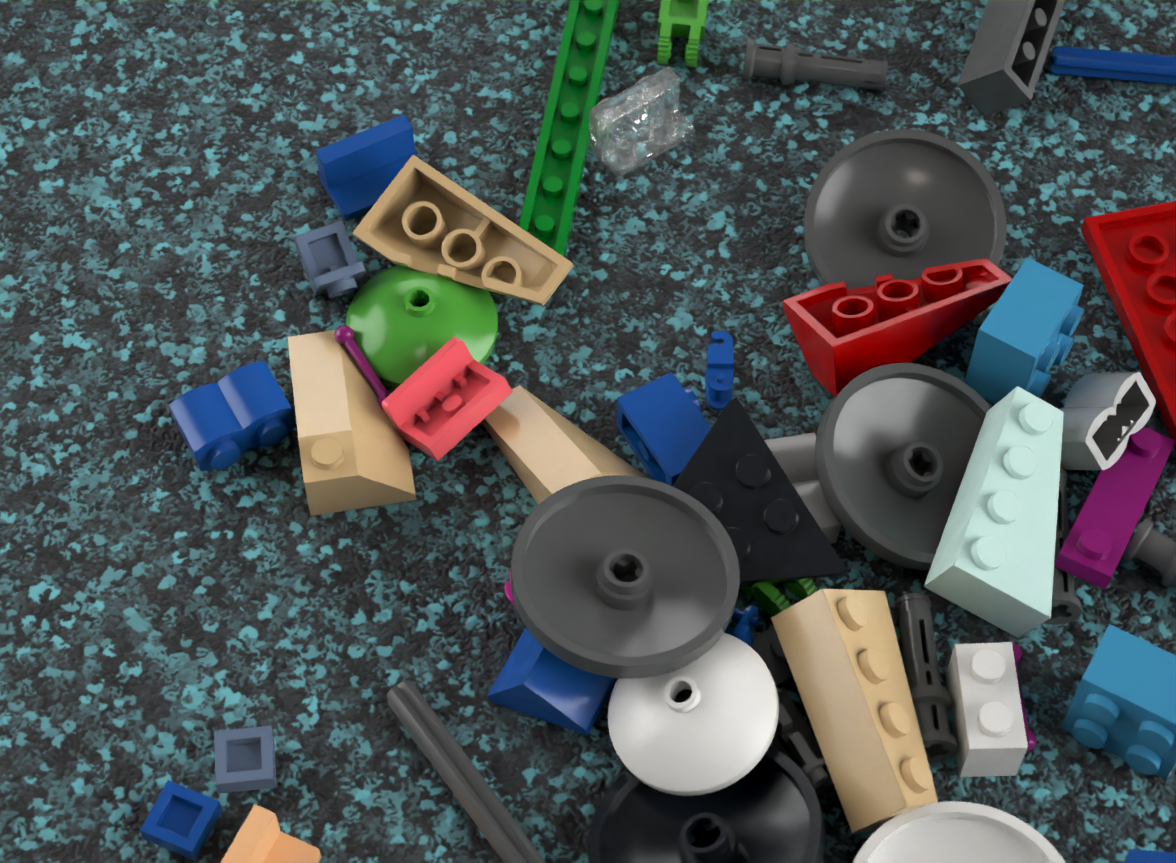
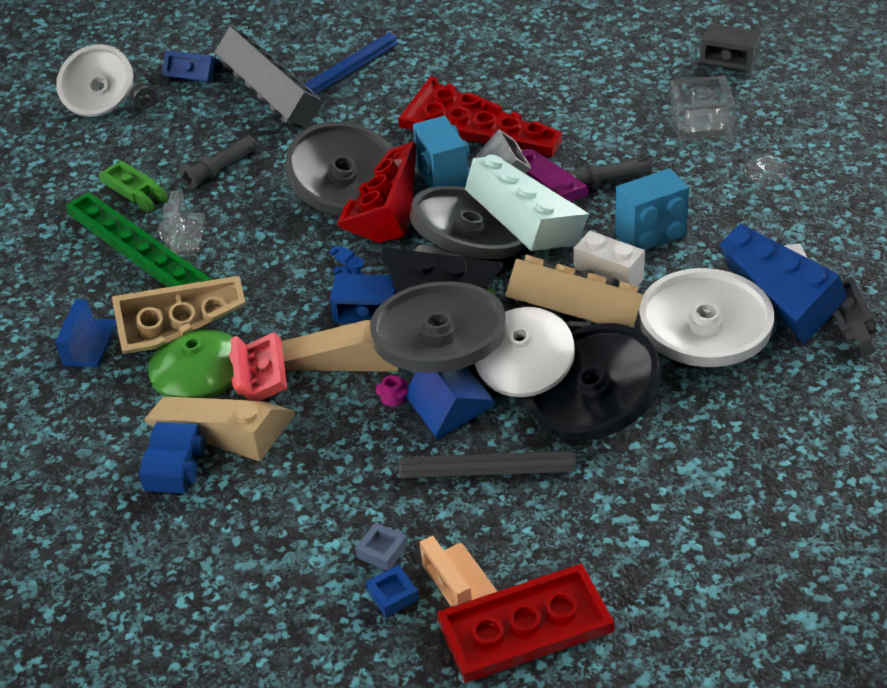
camera: 50 degrees left, 15 degrees down
(329, 260) = (122, 376): sand blue bracket -> none
(344, 335) = (174, 391): magenta hinge -> none

